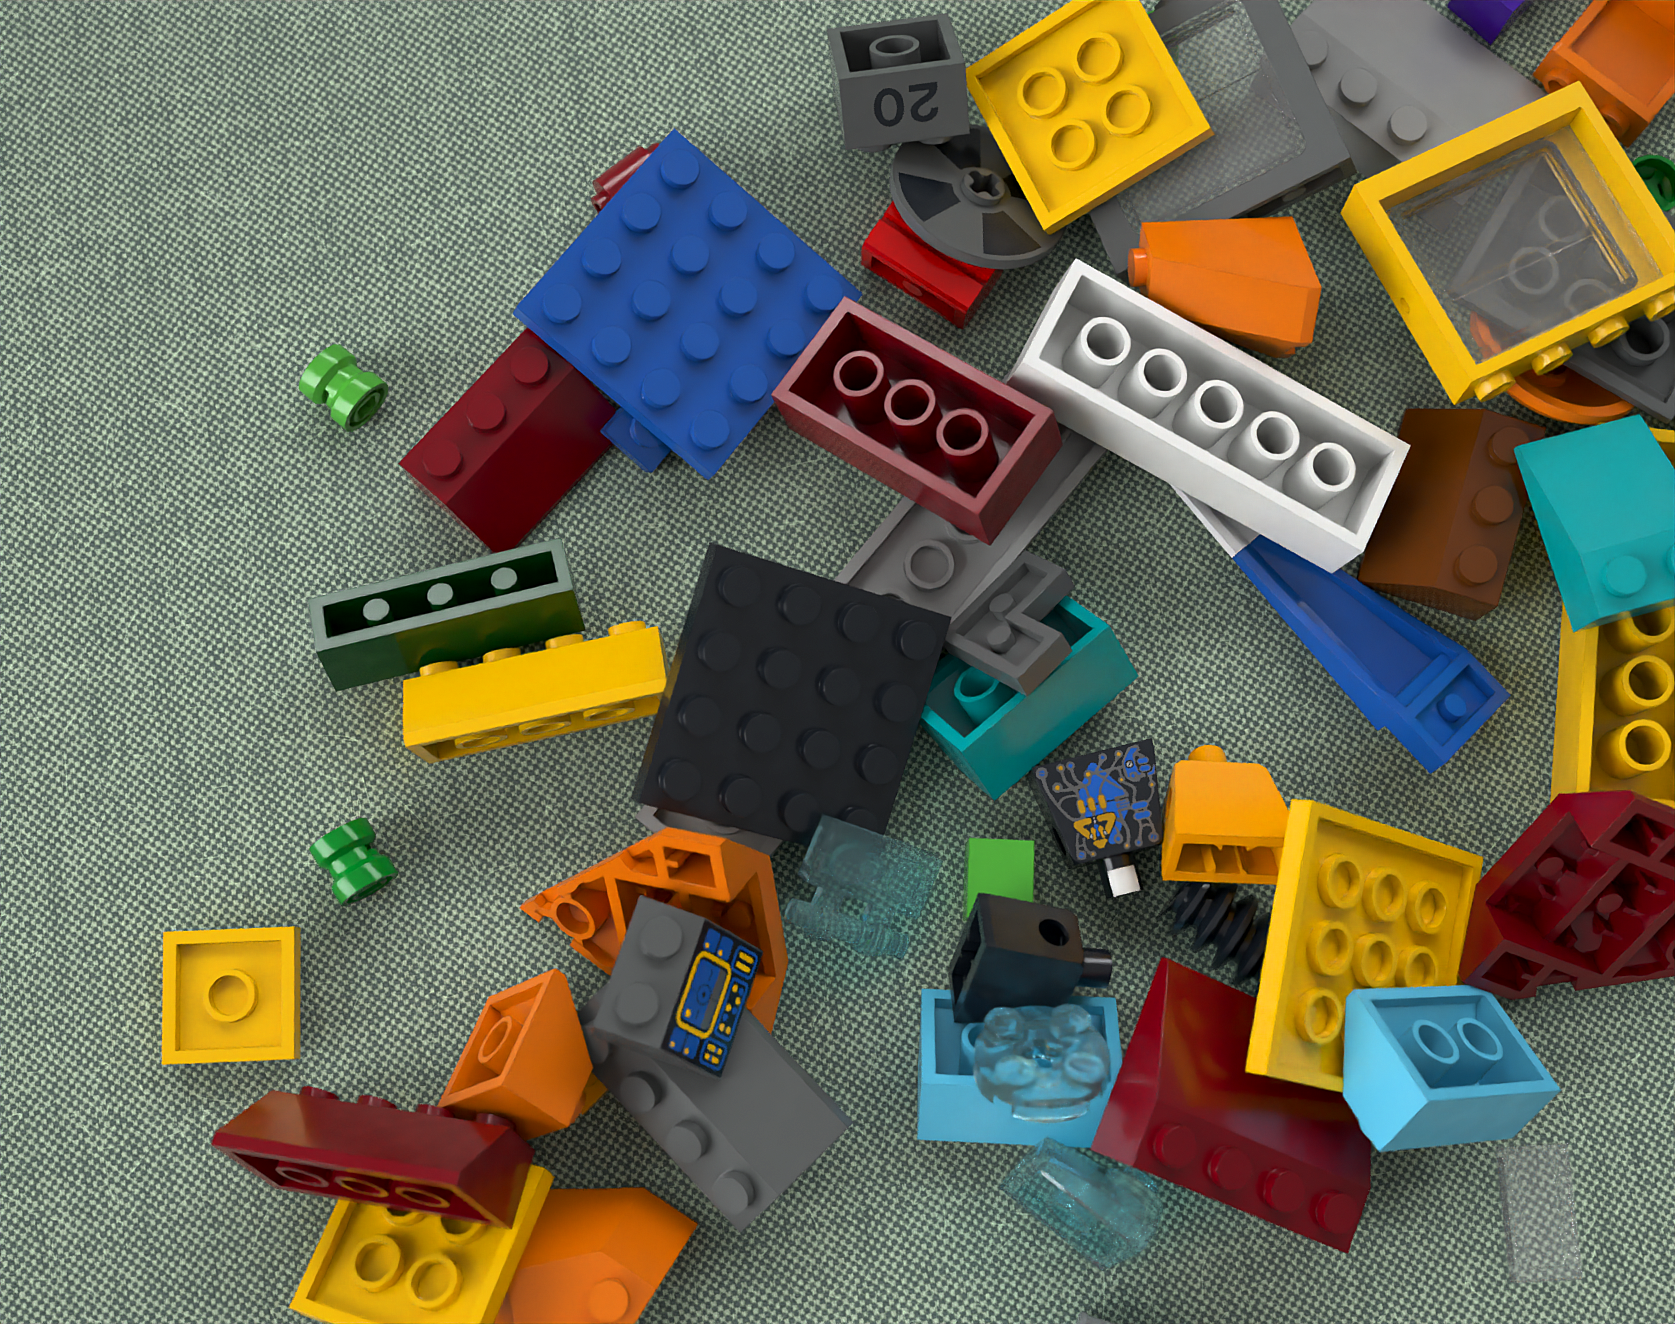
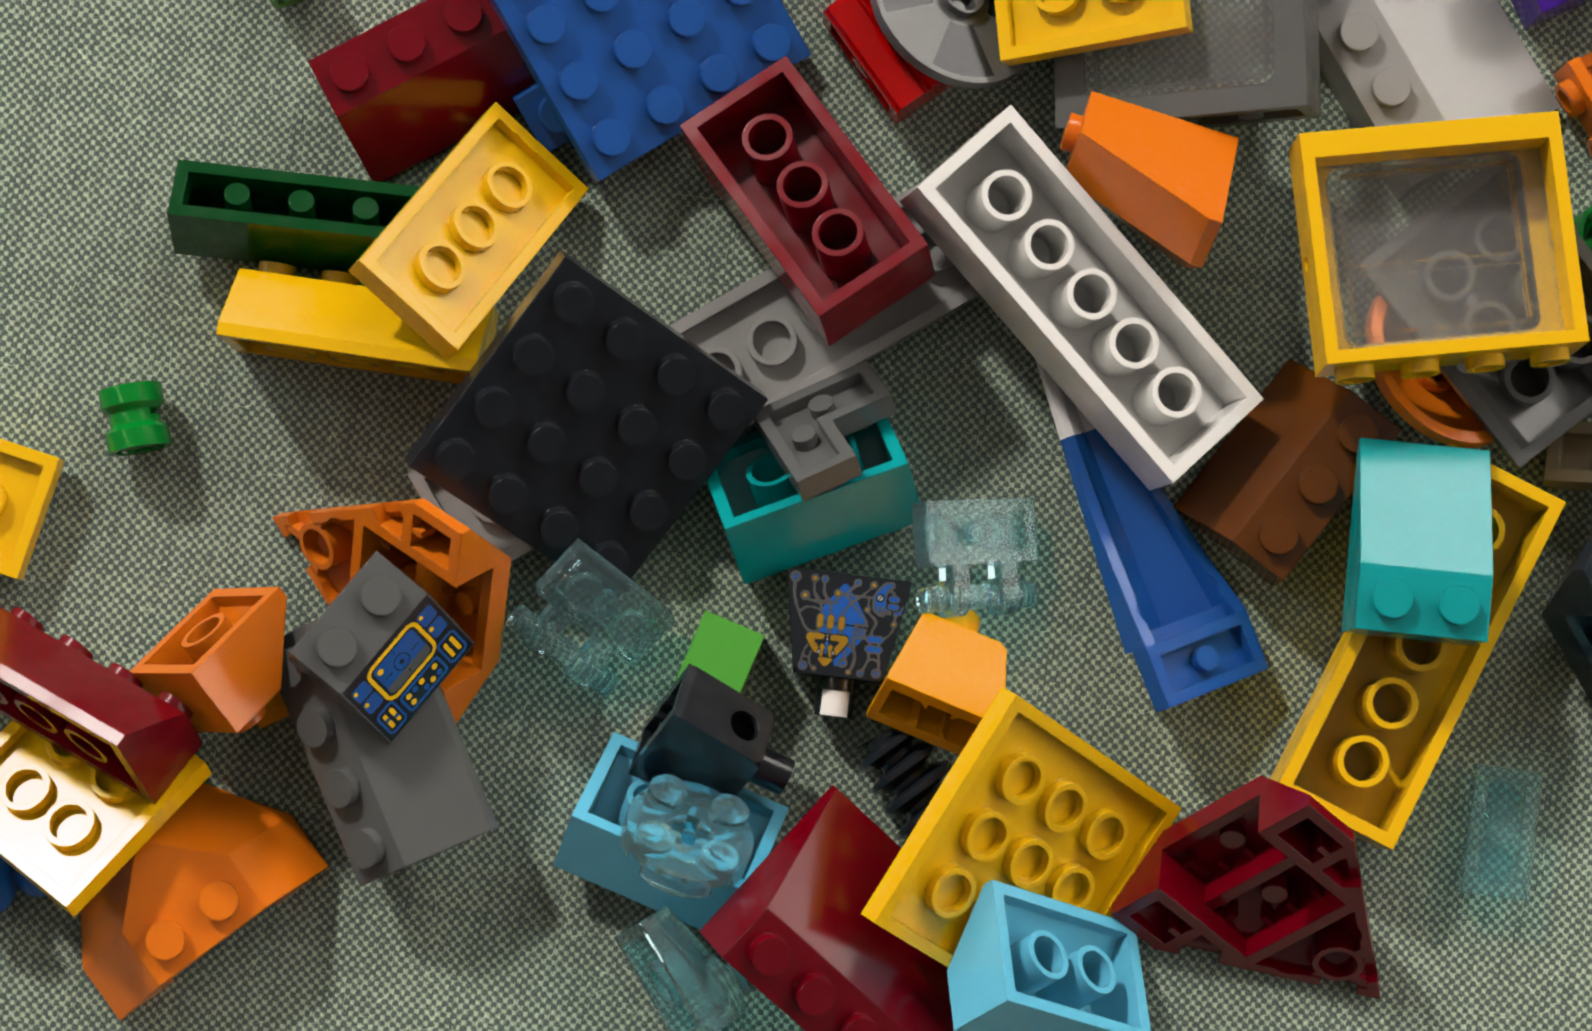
camera: 20 degrees right, 5 degrees up
(610, 564) = (469, 231): none -> yellow plate
(1188, 672) = (970, 534): none -> clear light blue plate

